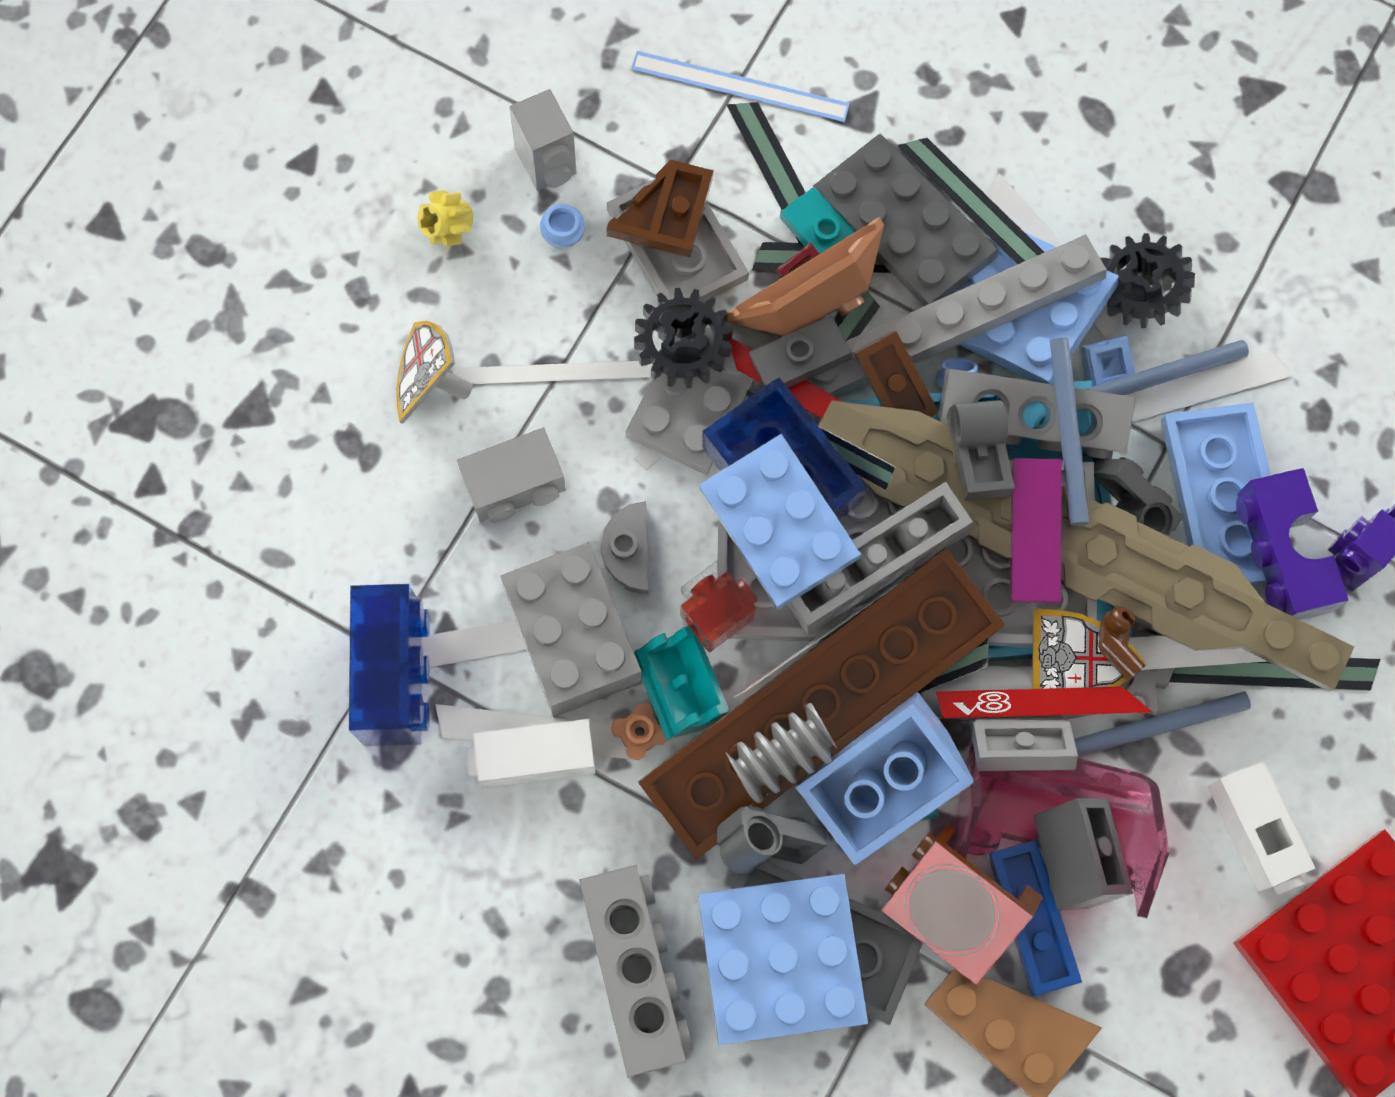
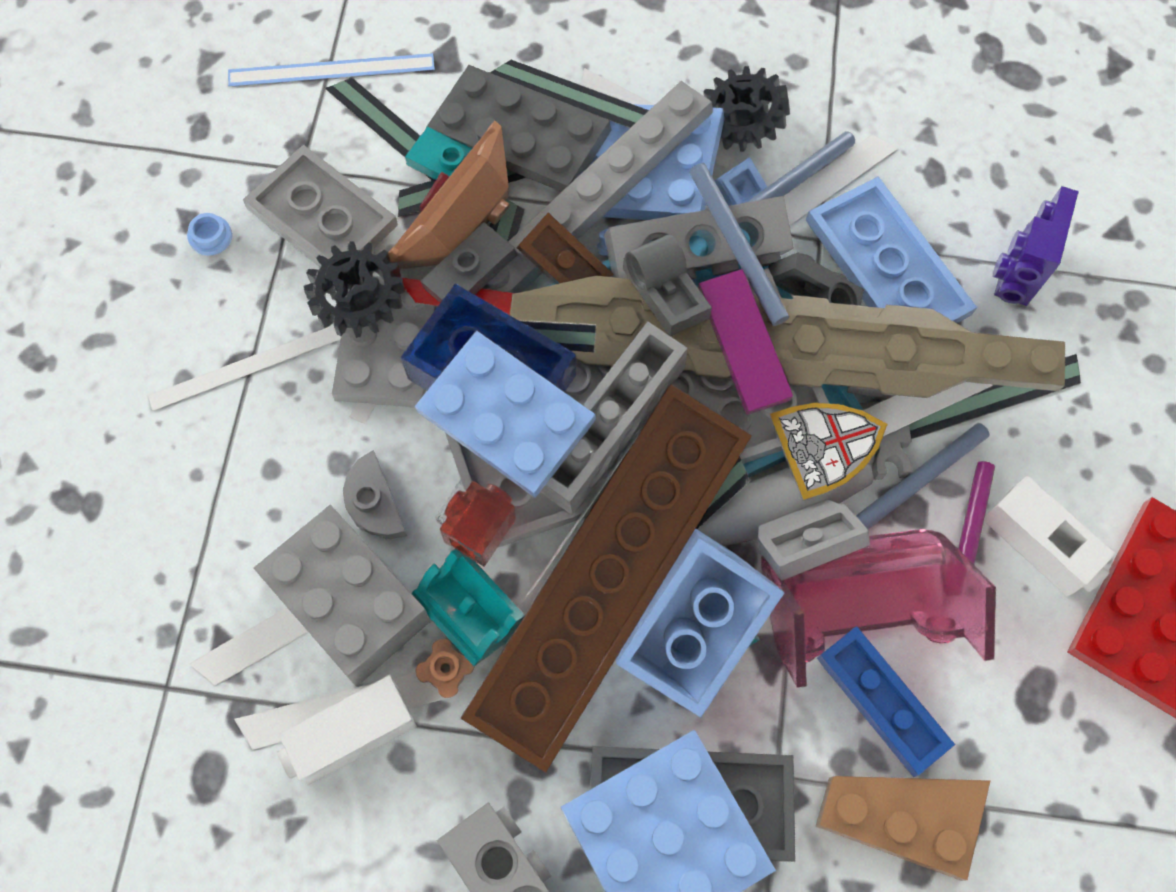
camera: 20 degrees left, 5 degrees down
(387, 665) = (166, 699): clear blue brick -> none
(426, 366) = (118, 398): shield -> none
(445, 218) = (93, 262): light yellow gear -> none
(512, 476) = (236, 472): light grey brick -> none
(543, 140) = (162, 161): light grey brick -> none
(667, 210) = (299, 185): reddish brown wing -> none
(755, 836) = (596, 726): dark grey plate -> none
(782, 753) = (592, 634): light grey piece -> none
(957, 907) = (814, 719): panel -> none
(1038, 702) = (807, 497): red sticker -> none
(1082, 854) = (906, 622): dark grey brick -> none
(1114, 642) = (854, 414): reddish brown arm -> none
(1200, 781) = (976, 509): none -> magenta bar
(1293, 582) = (937, 258): dark purple arch -> none

